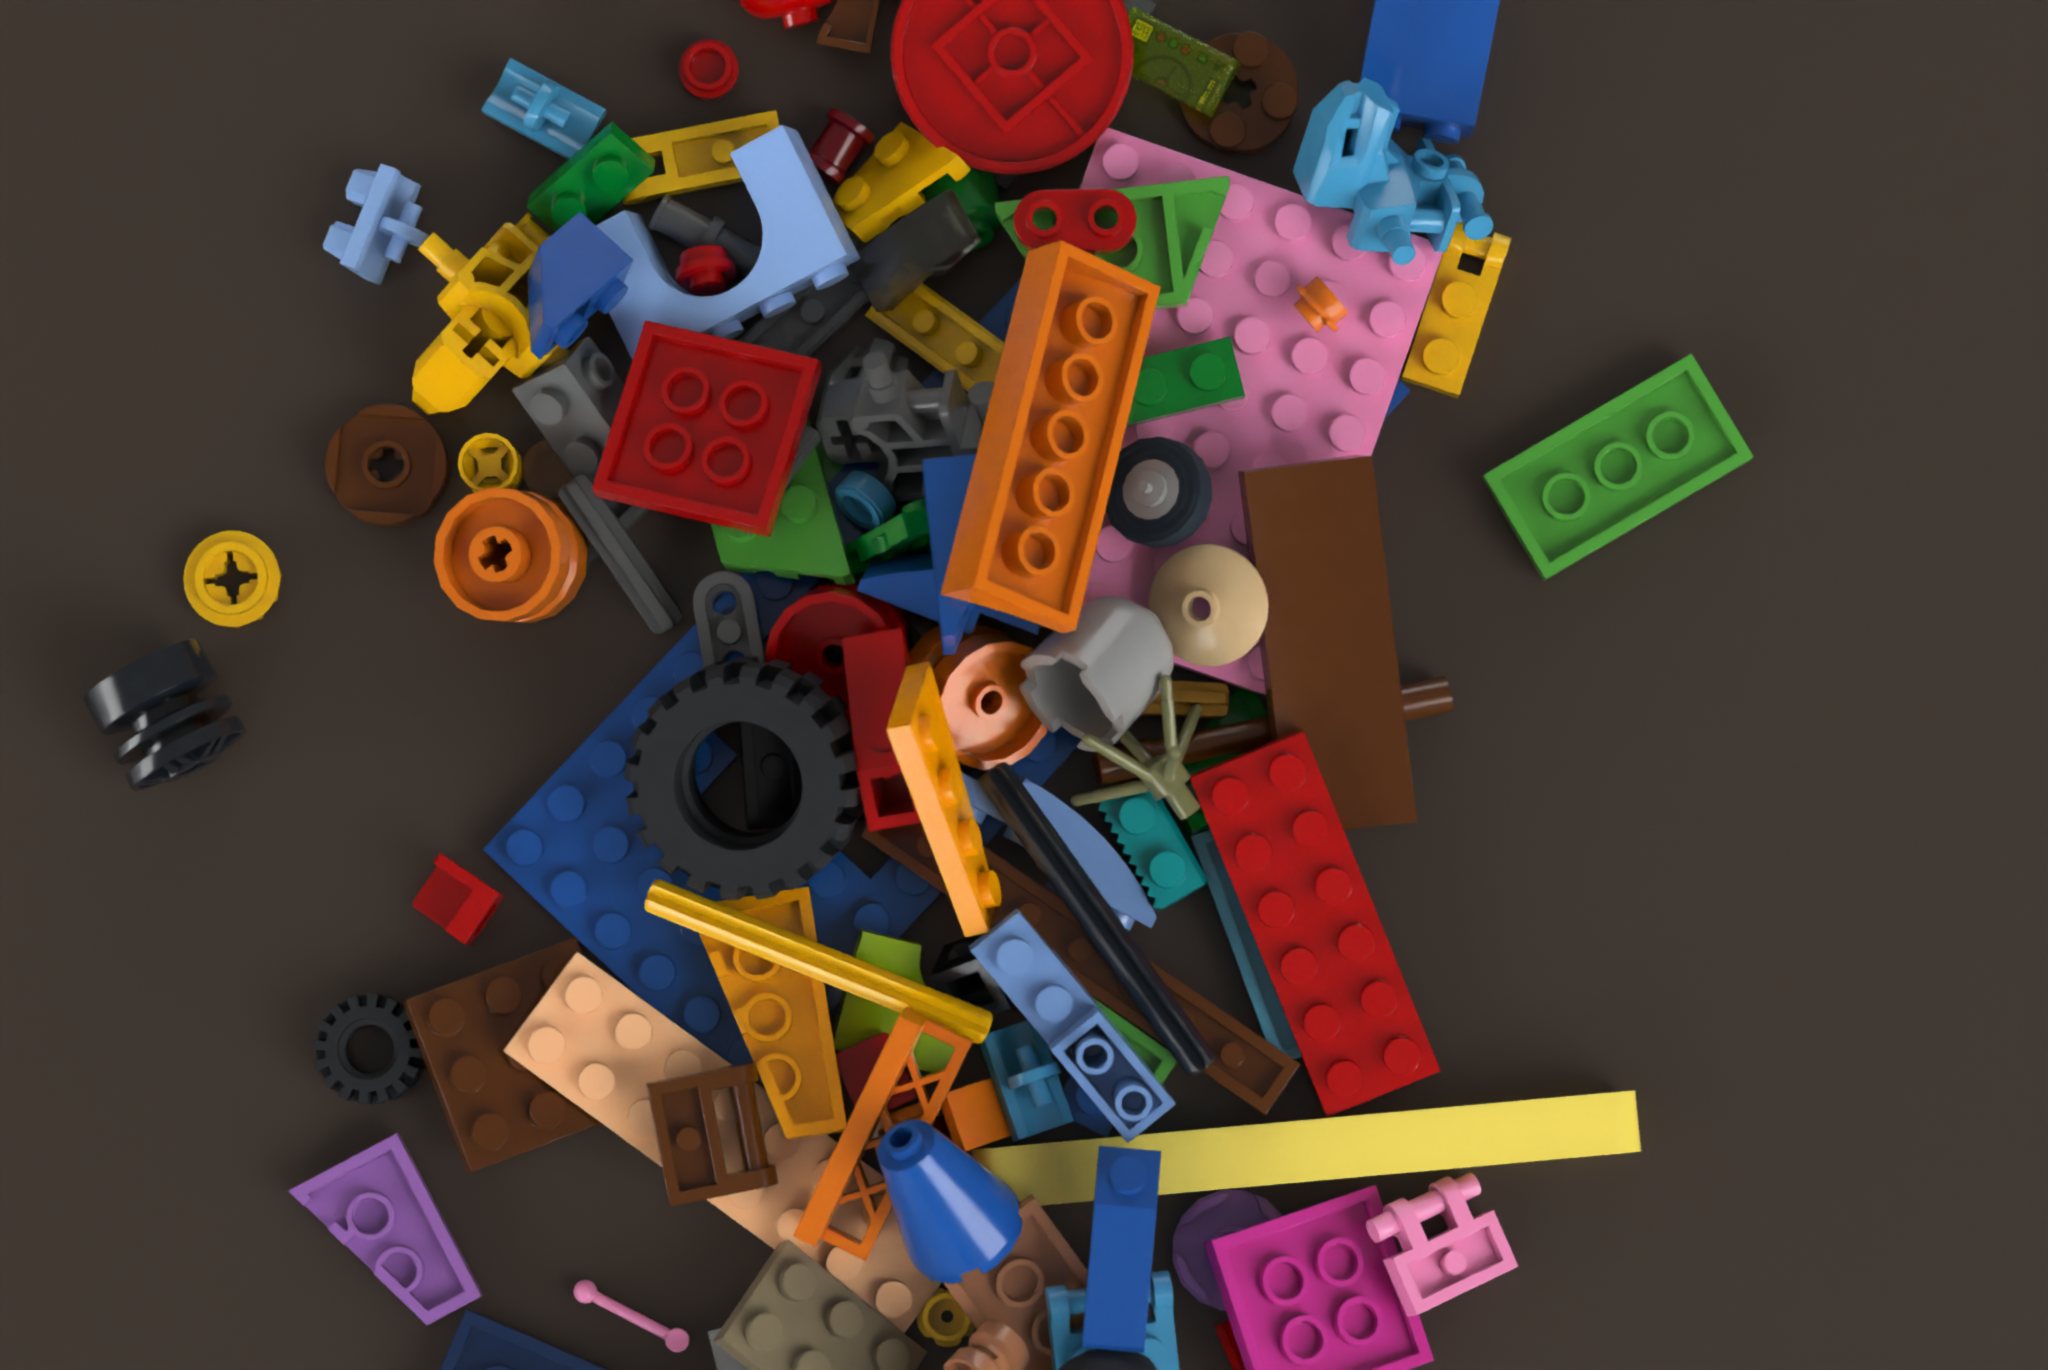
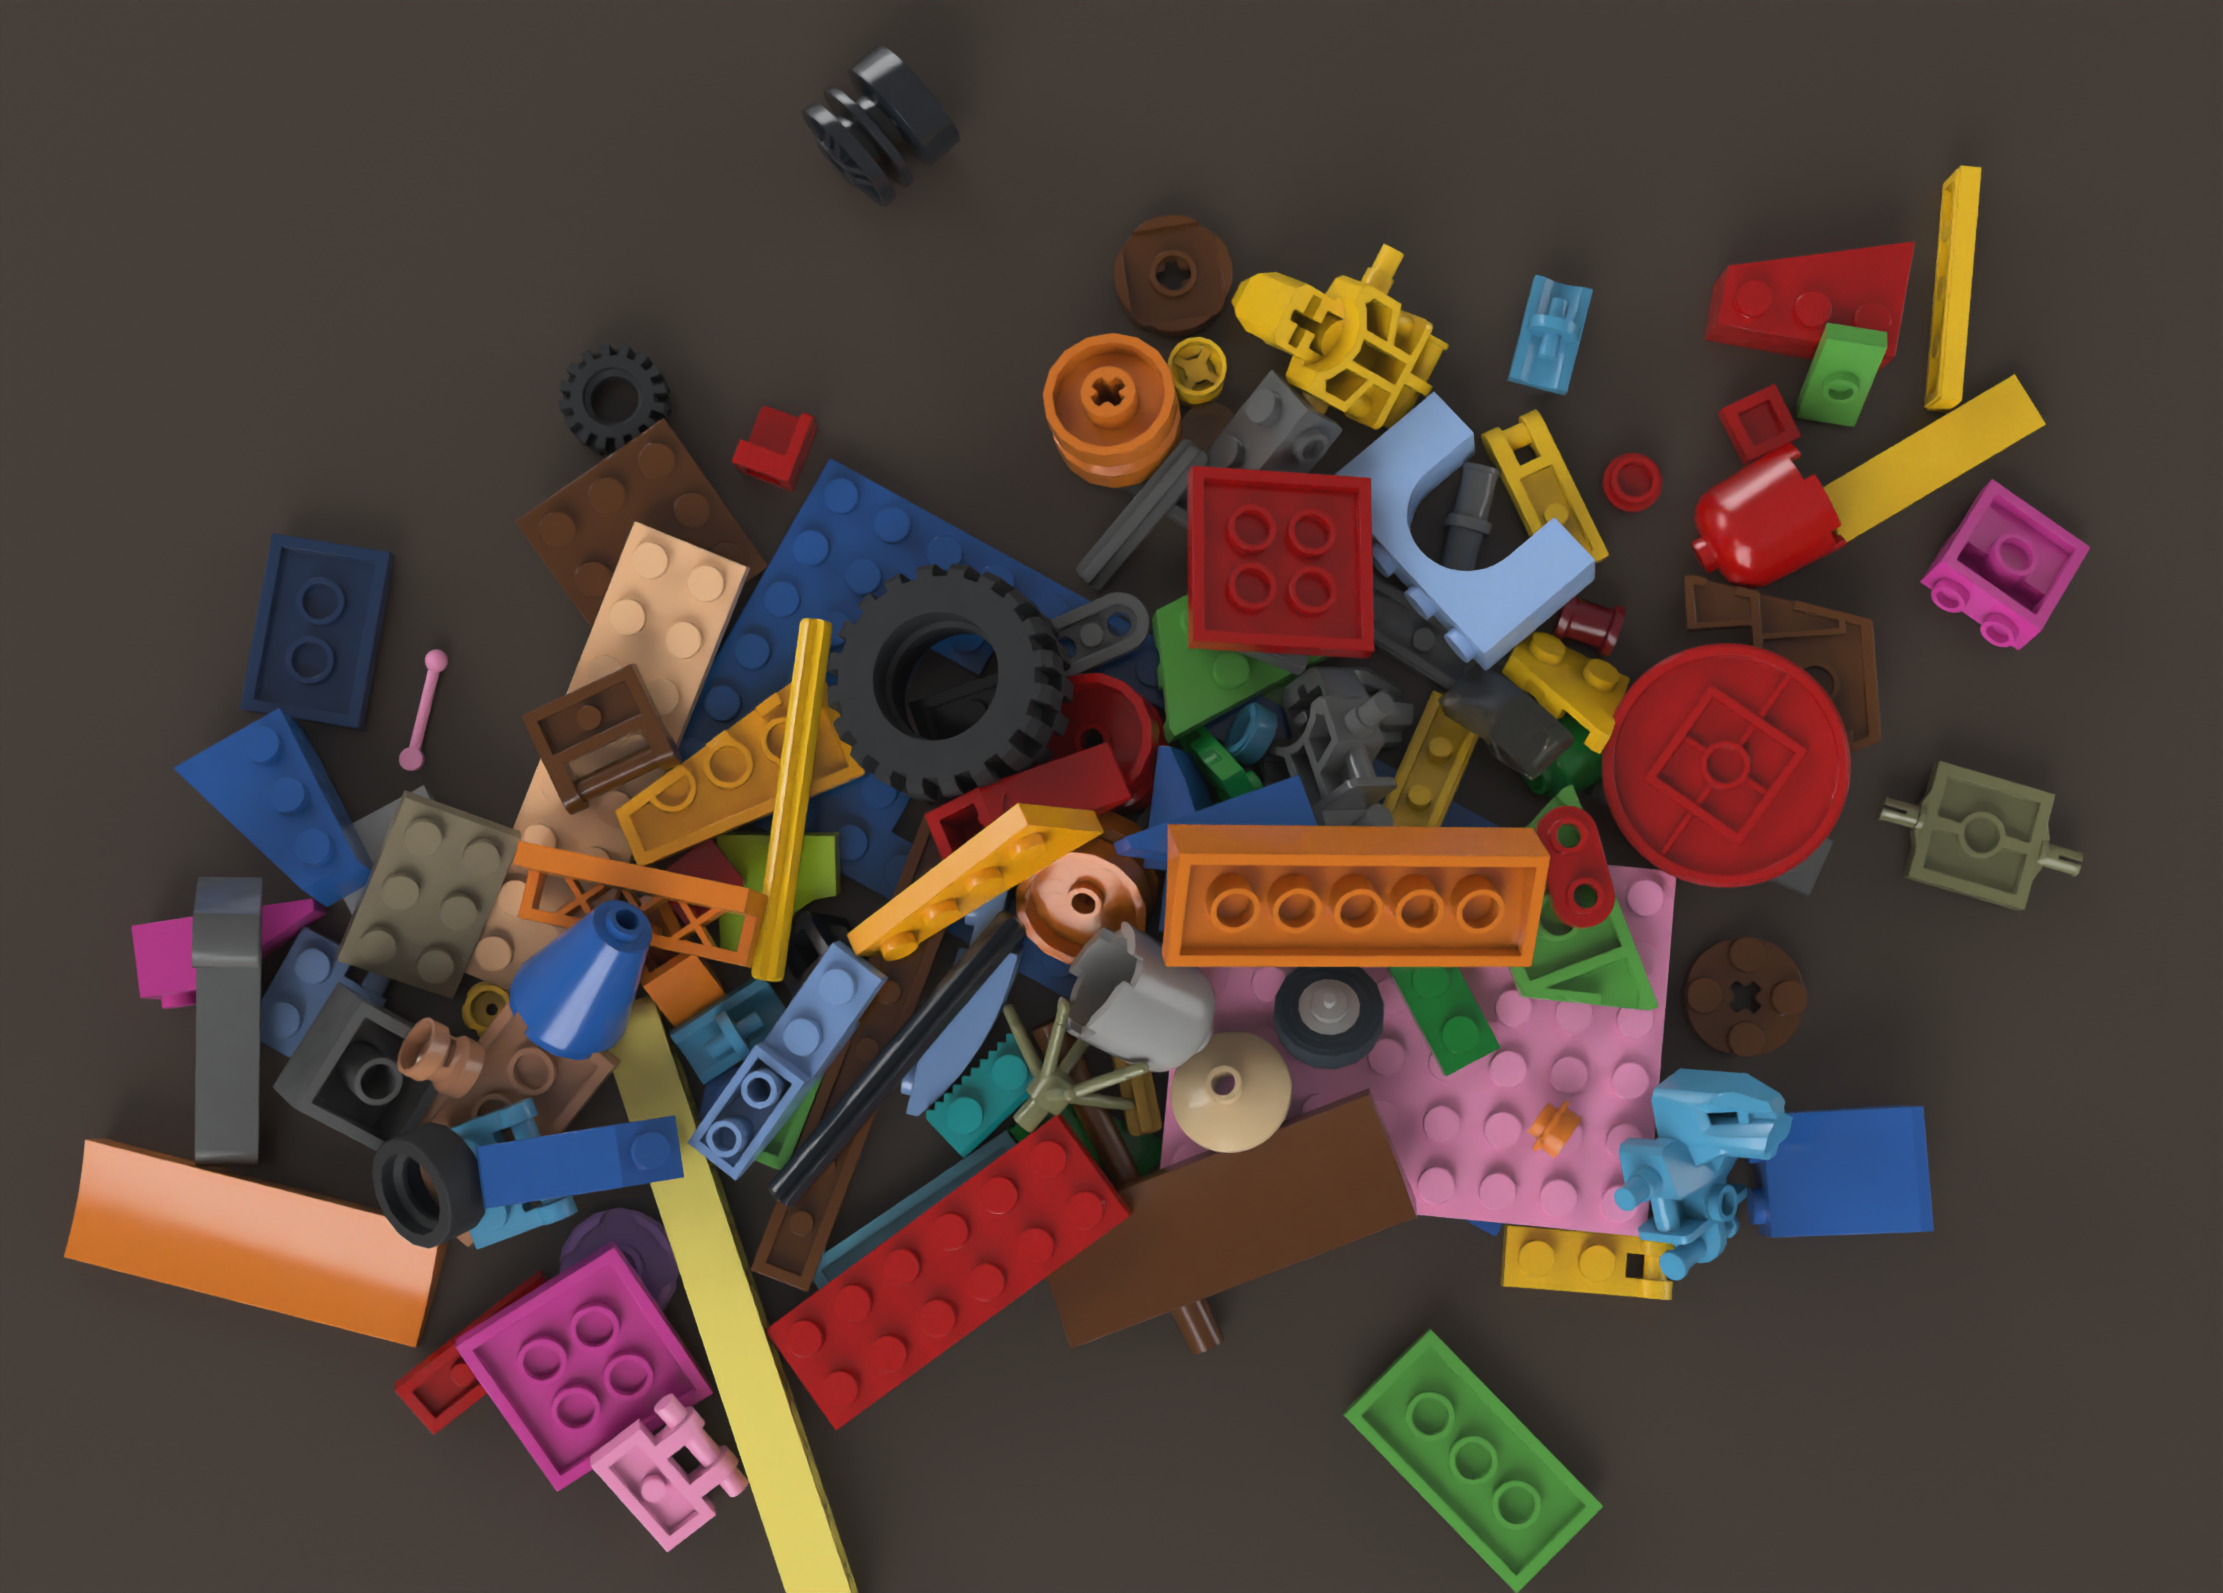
camera: 70 degrees right, 0 degrees up
(211, 560) = (1042, 136): yellow gear -> none
(383, 225) = (1402, 211): light blue hips -> none
(394, 1226) = (454, 467): medium lavender wing -> none
(570, 281) = (1390, 396): blue slope -> none
(592, 179) = (1492, 396): green plate -> none
(705, 269) = (1436, 525): red plate -> none
(1179, 63) = (1757, 932): clear neon green tile -> none

